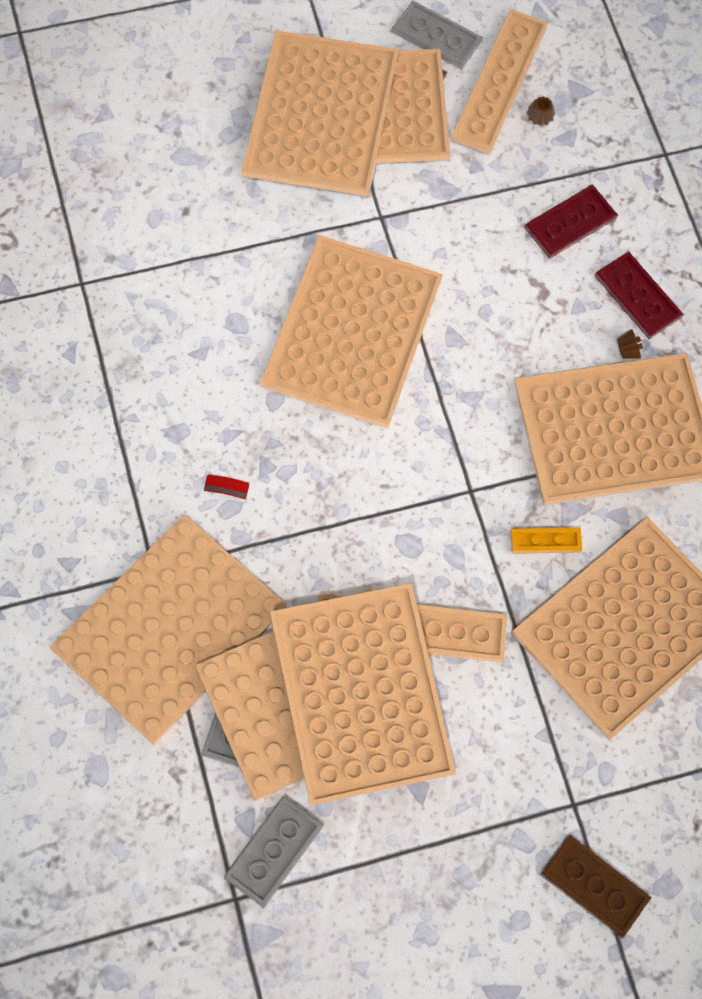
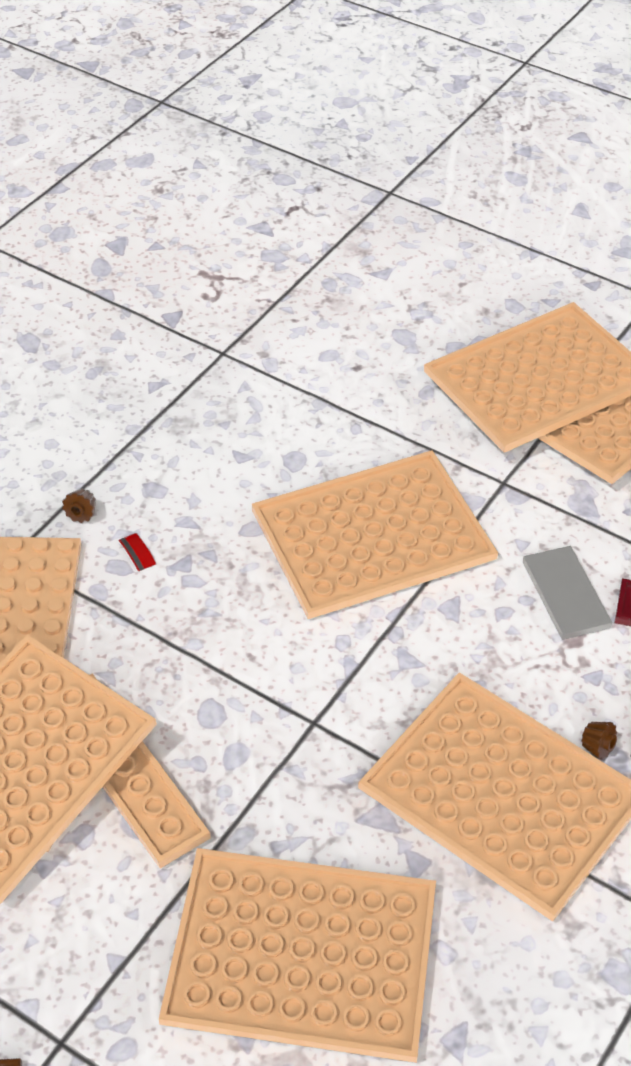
camera: 55 degrees right, 20 degrees down
(154, 491) = (79, 505): none -> reddish brown piece
(504, 263) = (566, 592): none -> light grey tile
(546, 540) = (322, 814): light orange plate -> none

